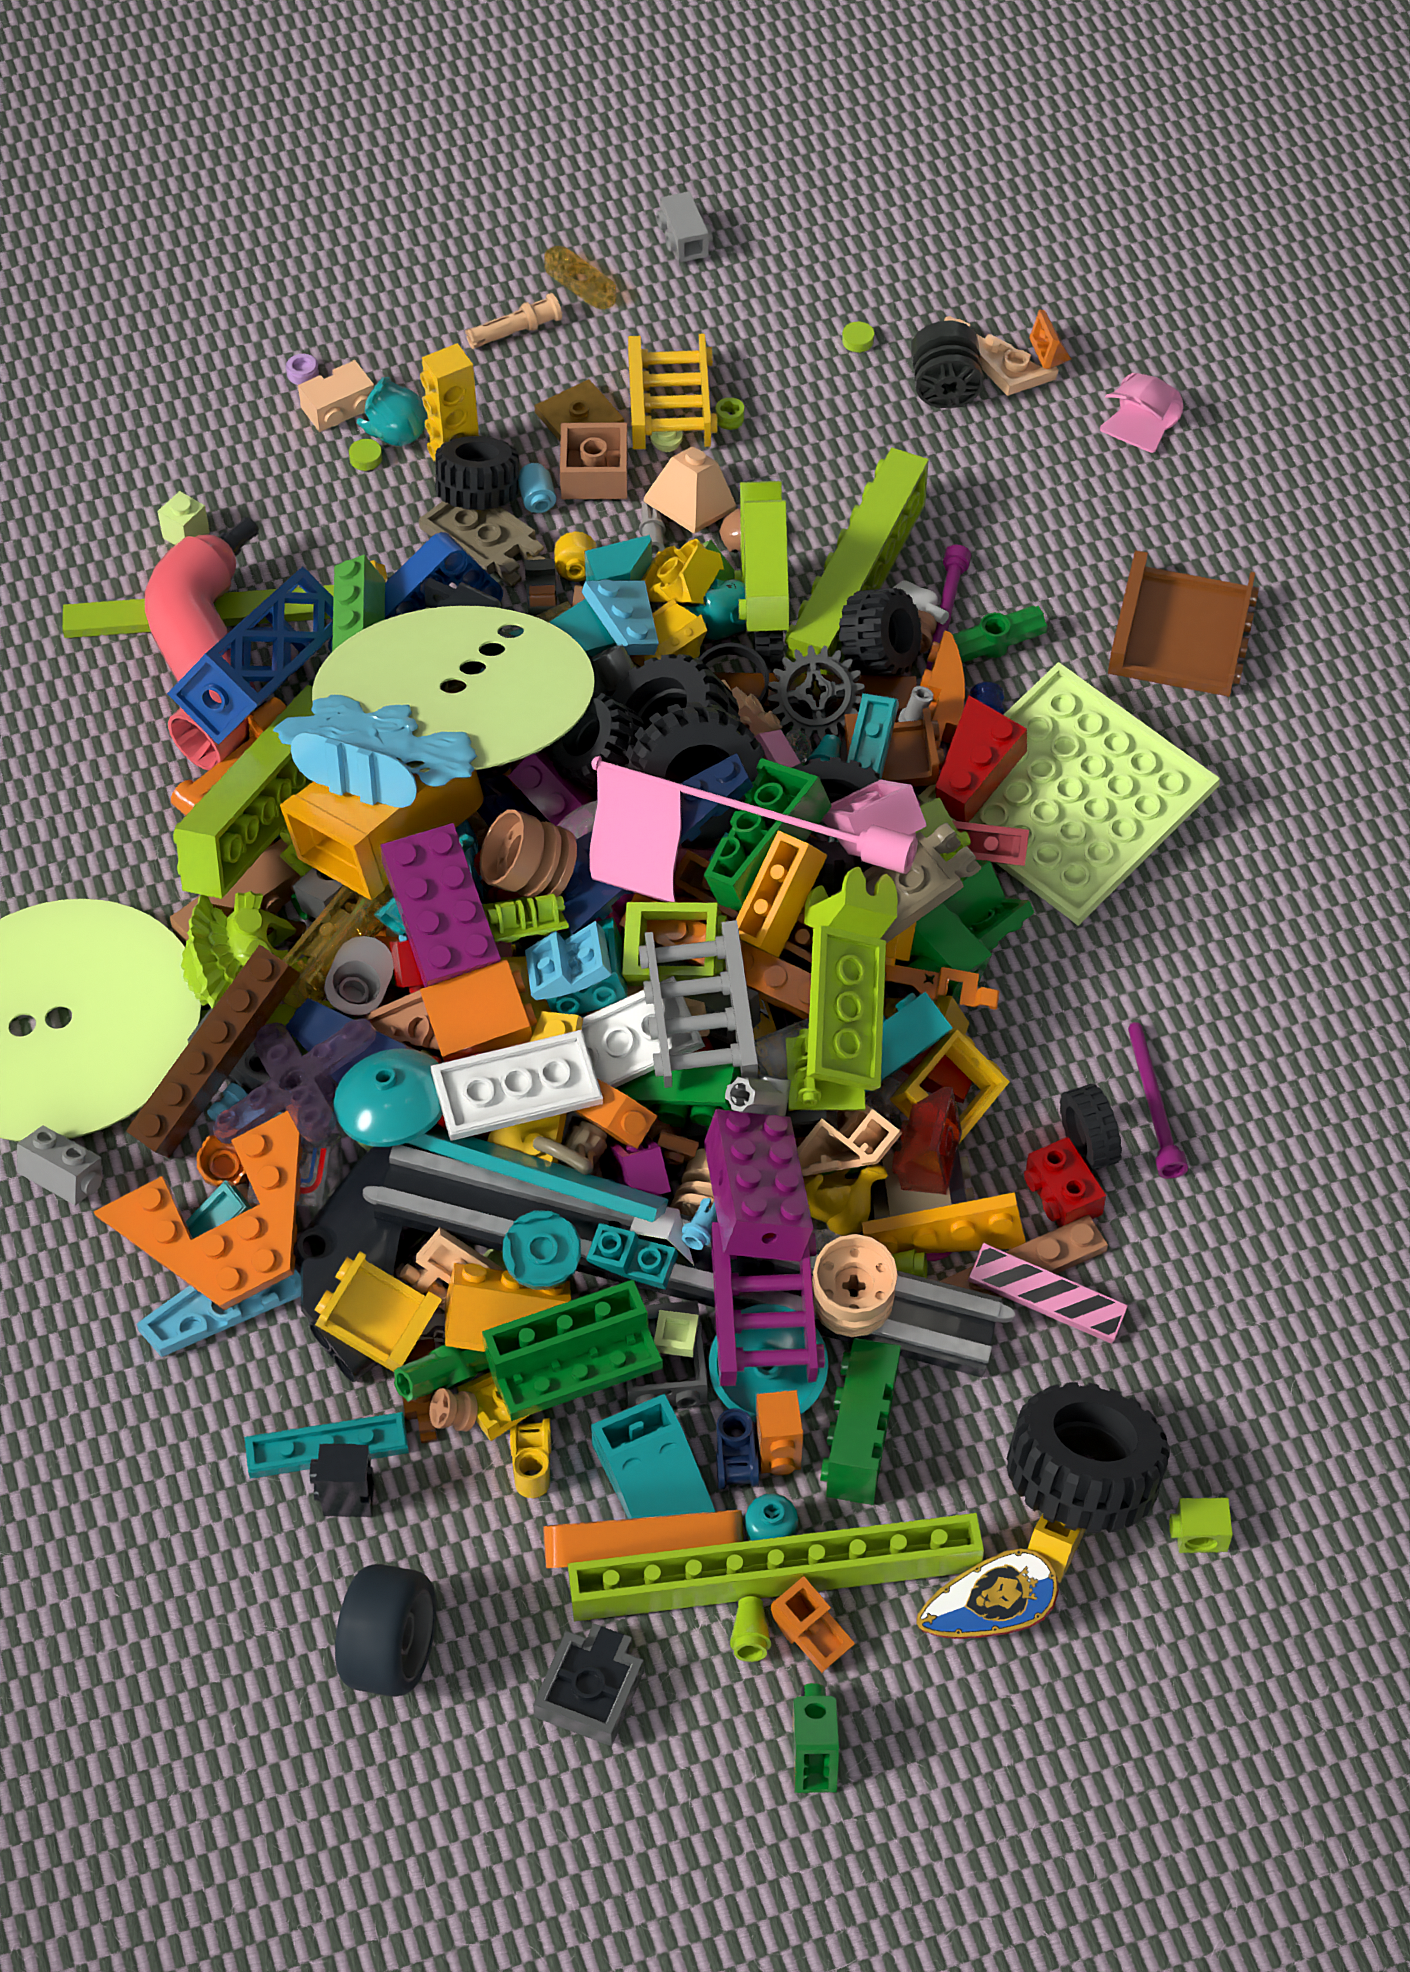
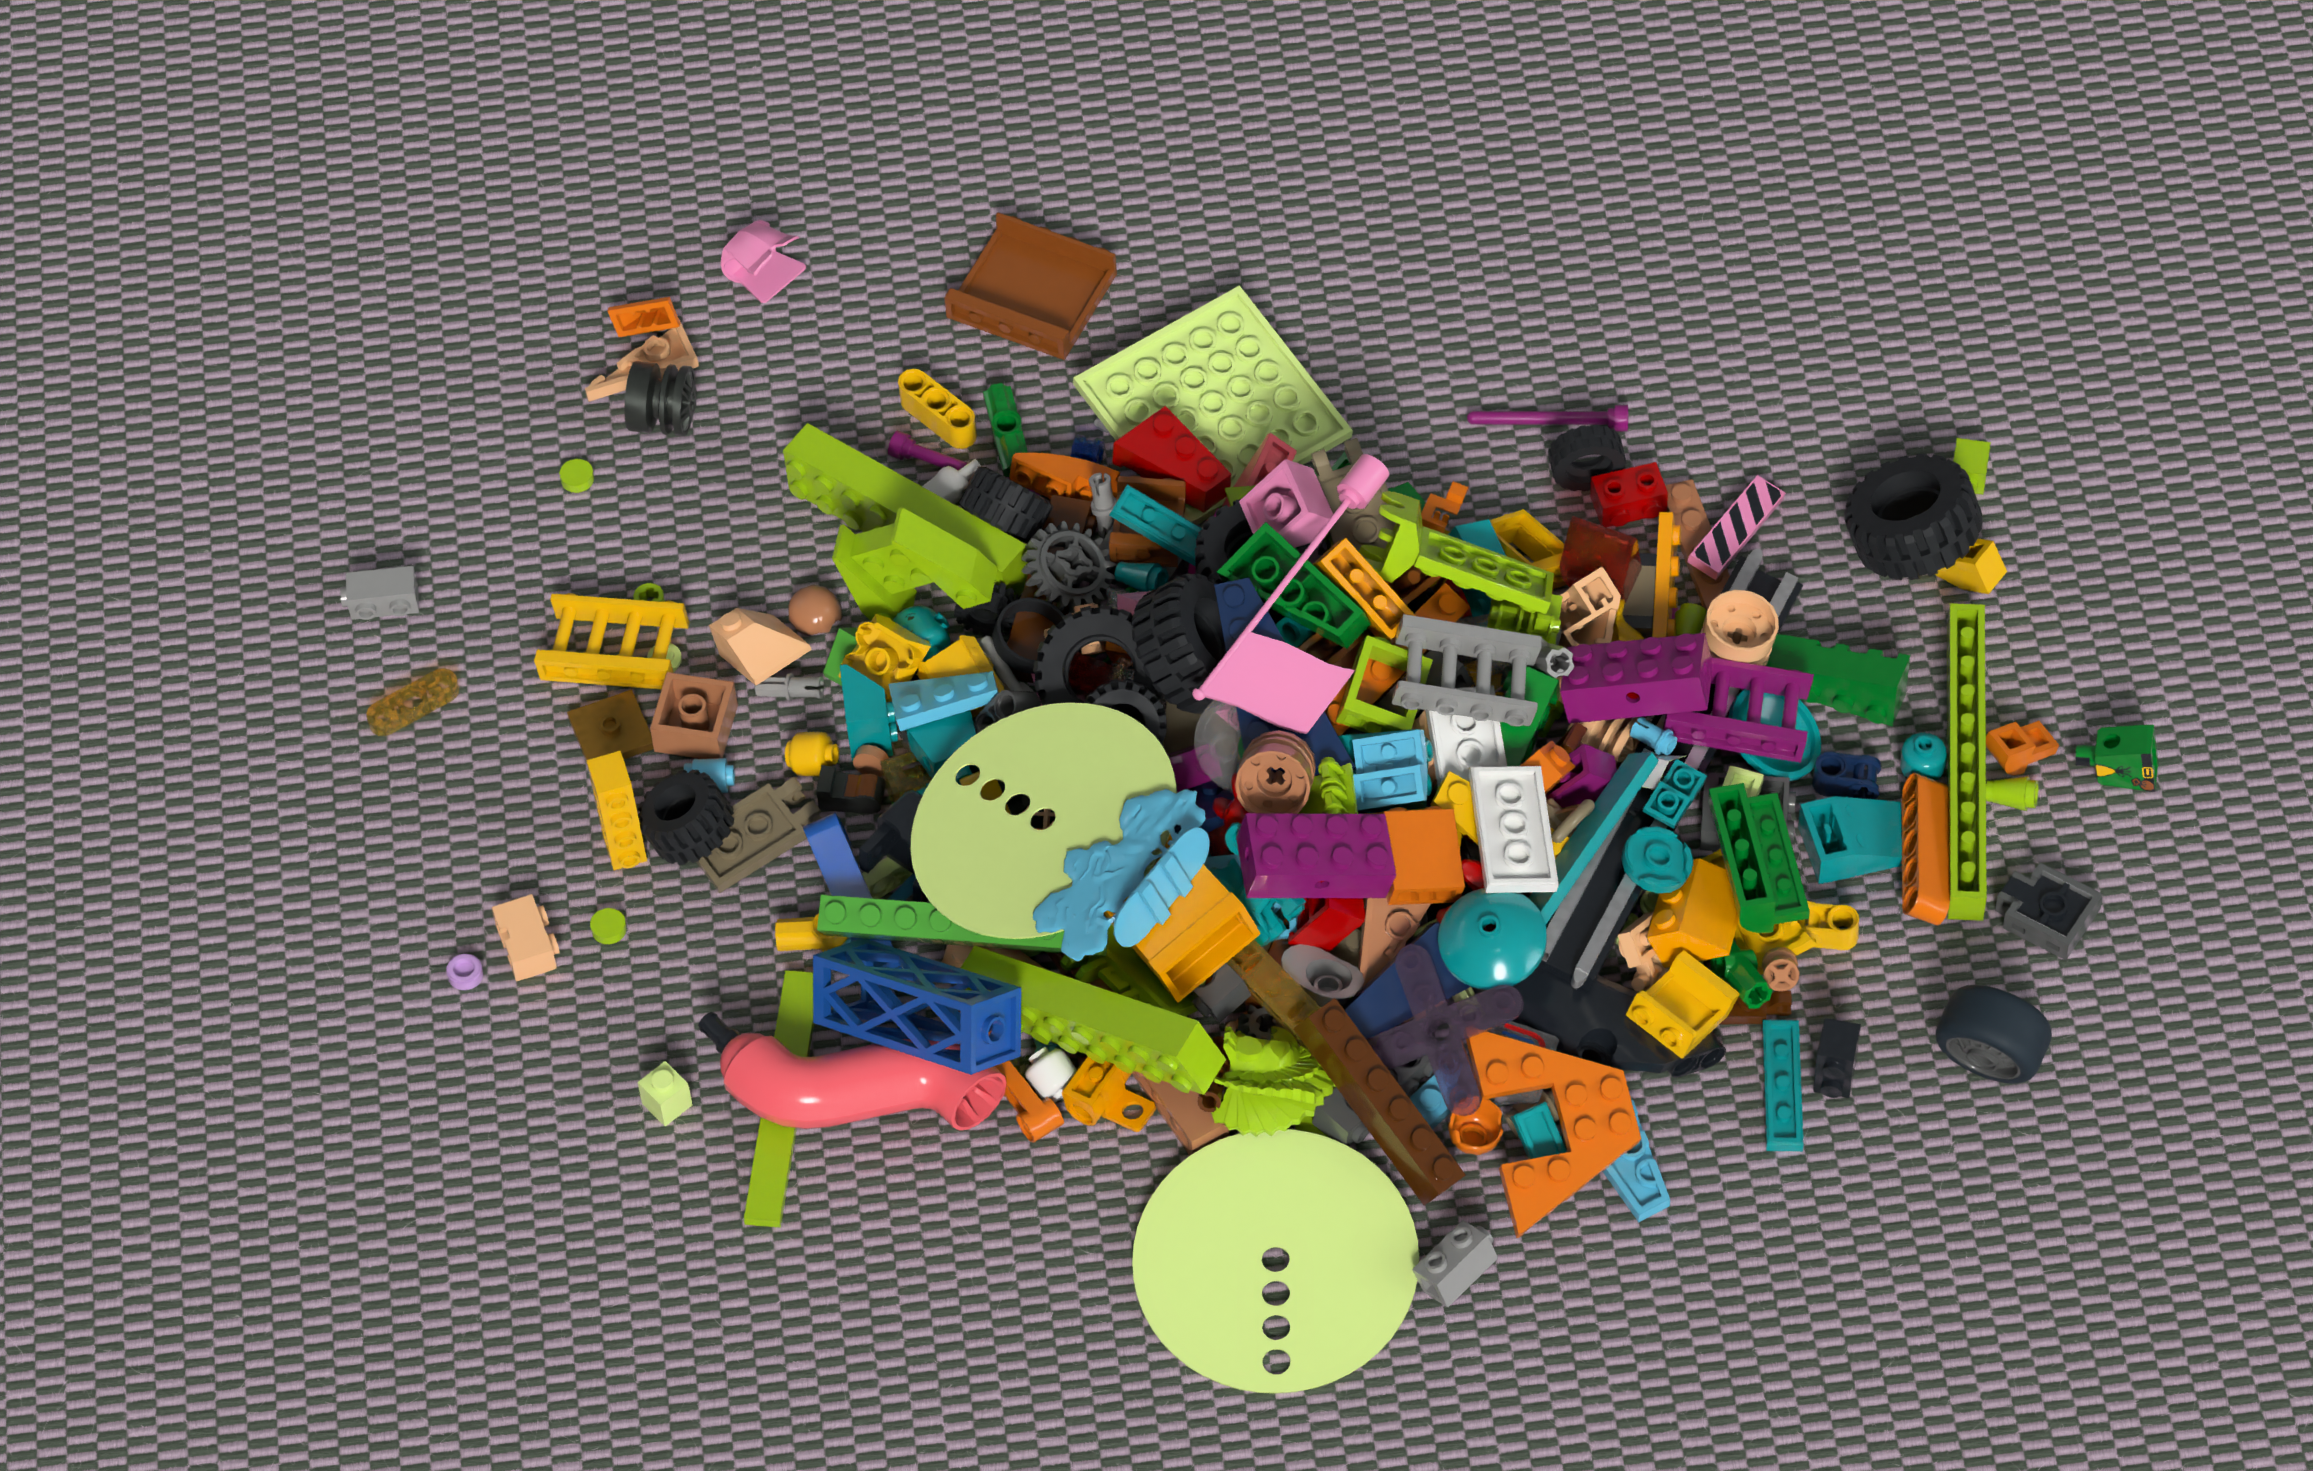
camera: 75 degrees left, 0 degrees up
(394, 414) = (577, 882): teal hair -> none
(527, 317) = (461, 754): light nougat pin -> none
(779, 1432) = (1847, 727): orange brick -> none
(993, 1597) = (2016, 616): shield -> none
(1007, 575) = (937, 408): none -> yellow beam

